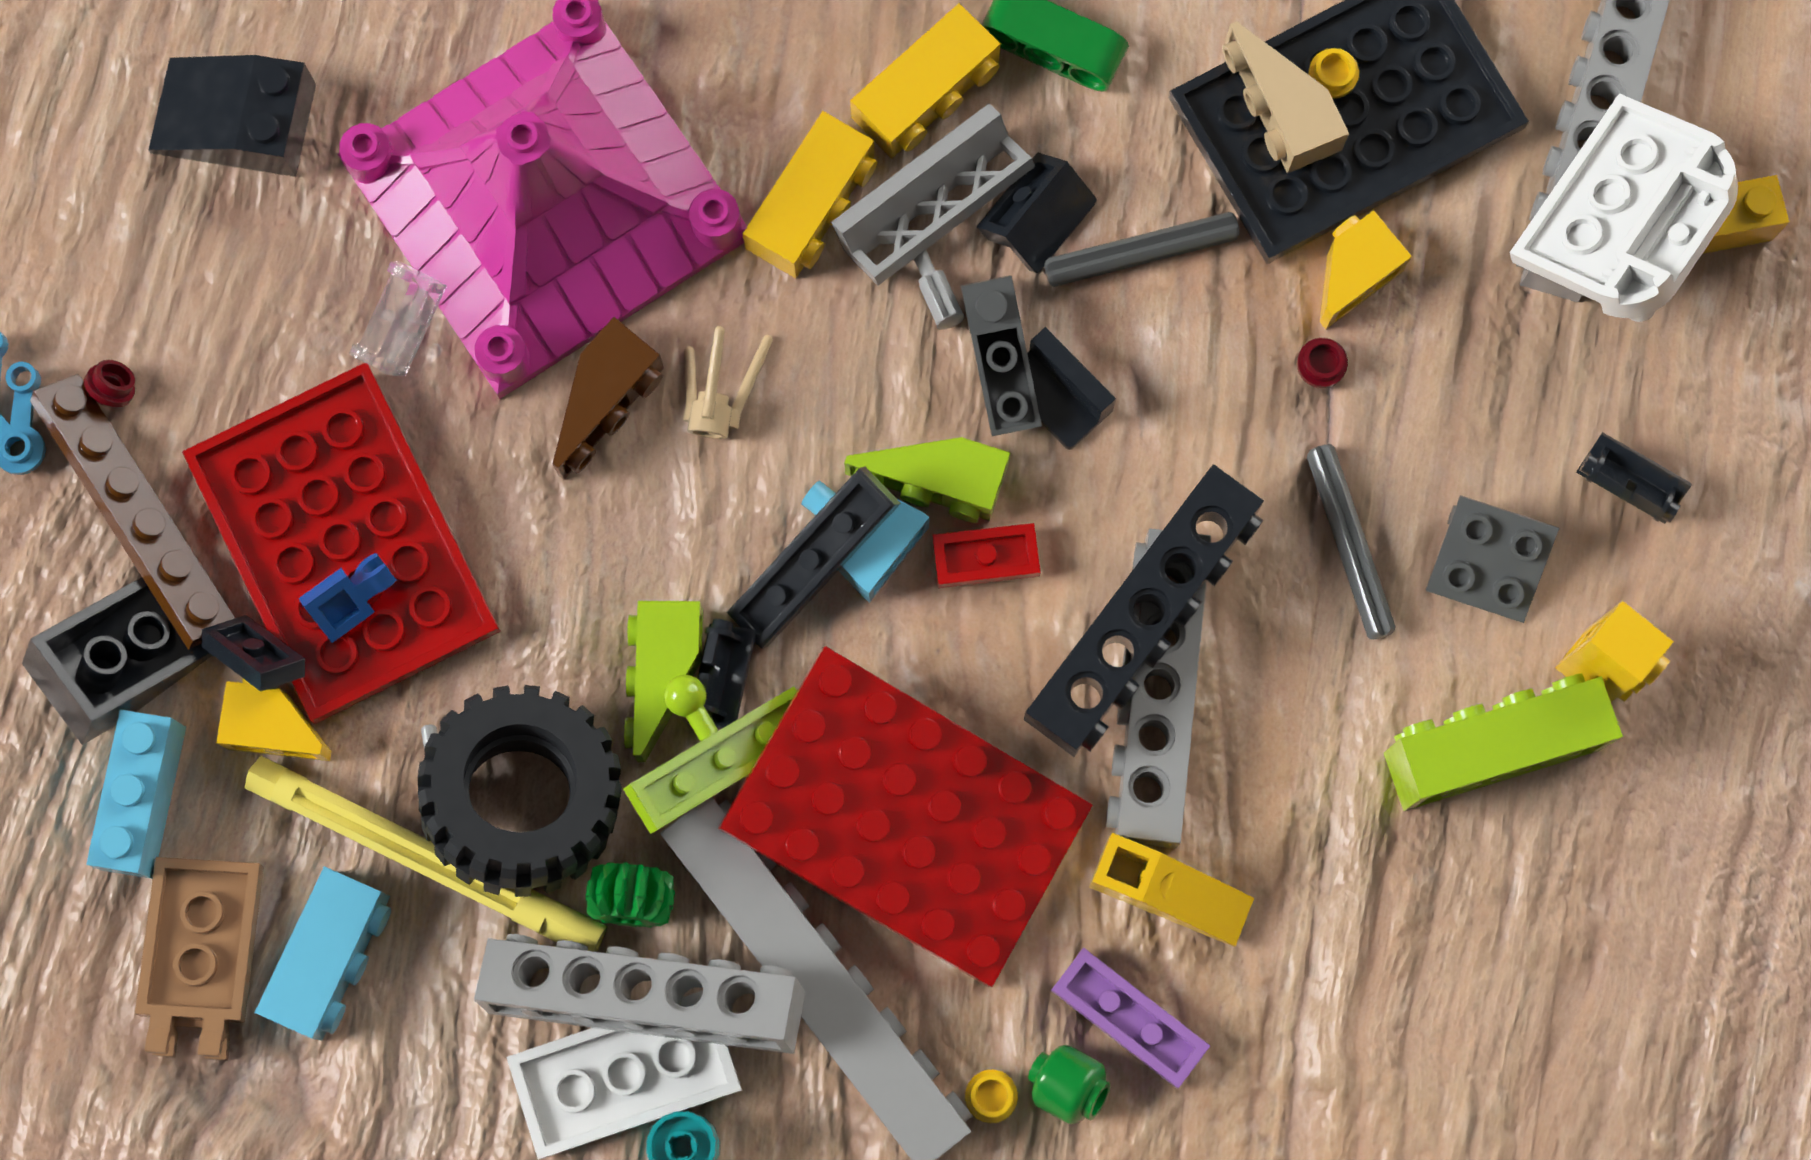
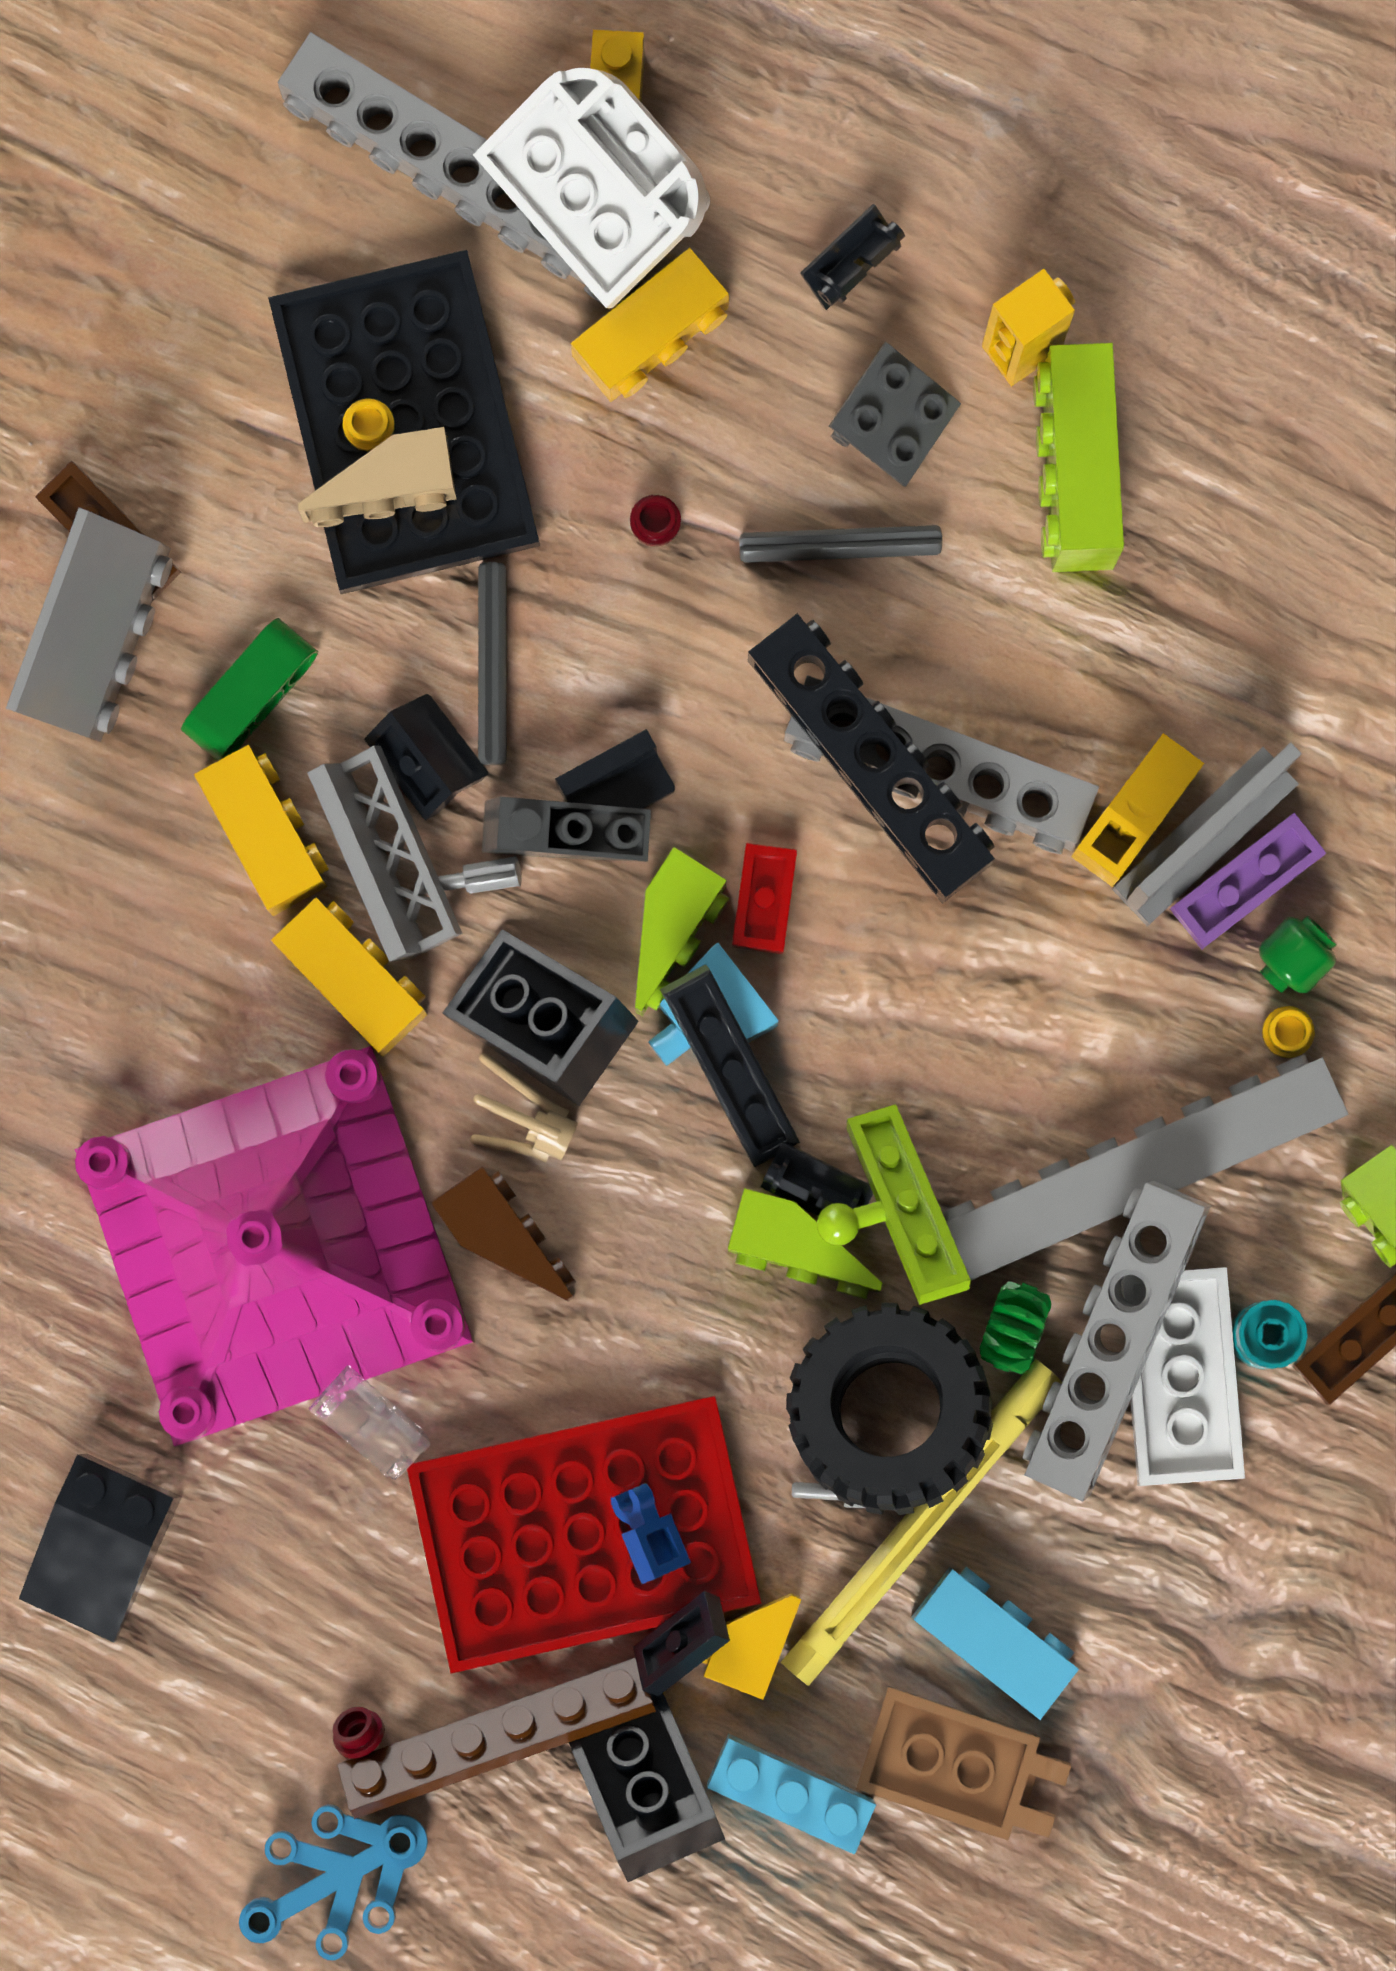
camera: 75 degrees left, 5 degrees up
(816, 378) = (541, 1016): none -> black slope
(906, 816) = (1004, 1042): red plate -> none
(1165, 967) = (1208, 833): none -> light grey fence
(1359, 264) = (568, 457): yellow slope -> none
(1508, 309) = (651, 326): none -> yellow brick

